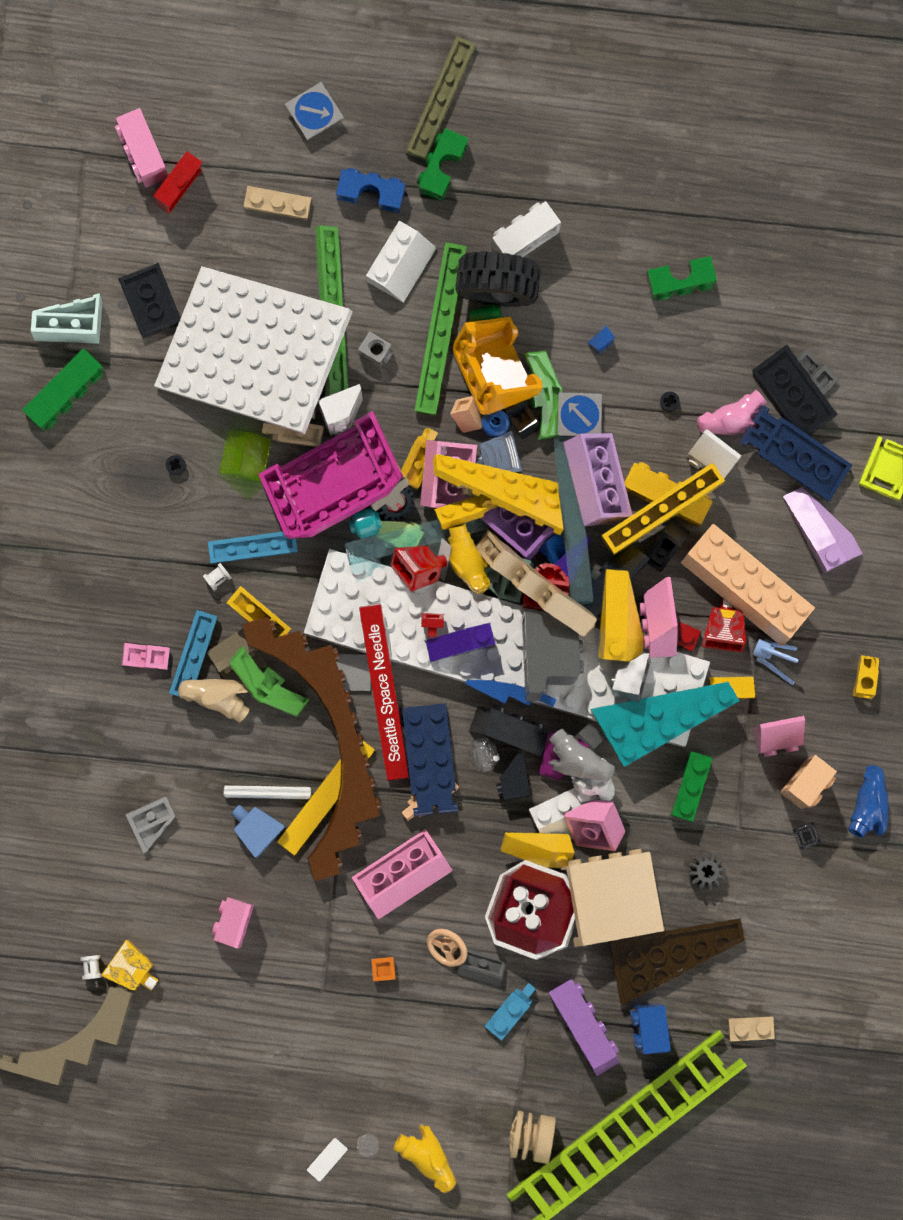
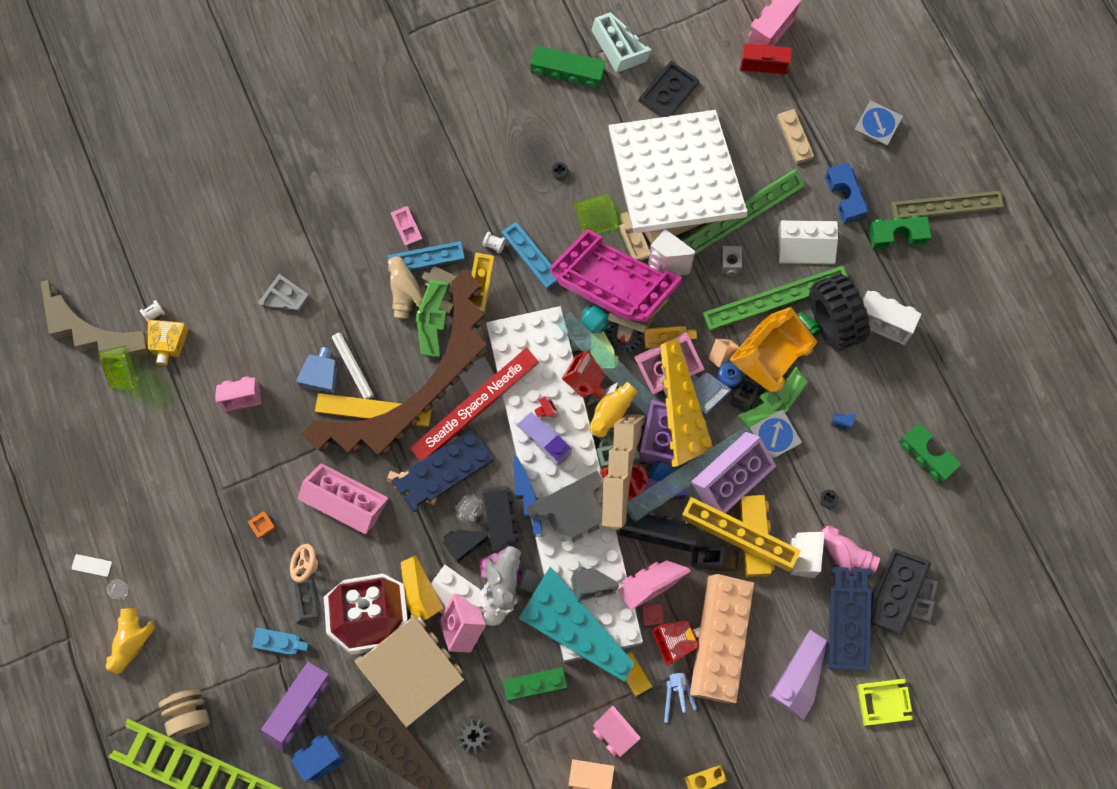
camera: 65 degrees right, 10 degrees down
(138, 1031) = (119, 368): none -> clear neon green slope
(463, 511) = (647, 386): yellow hinge -> none
(620, 624) = (629, 552): yellow wedge -> none

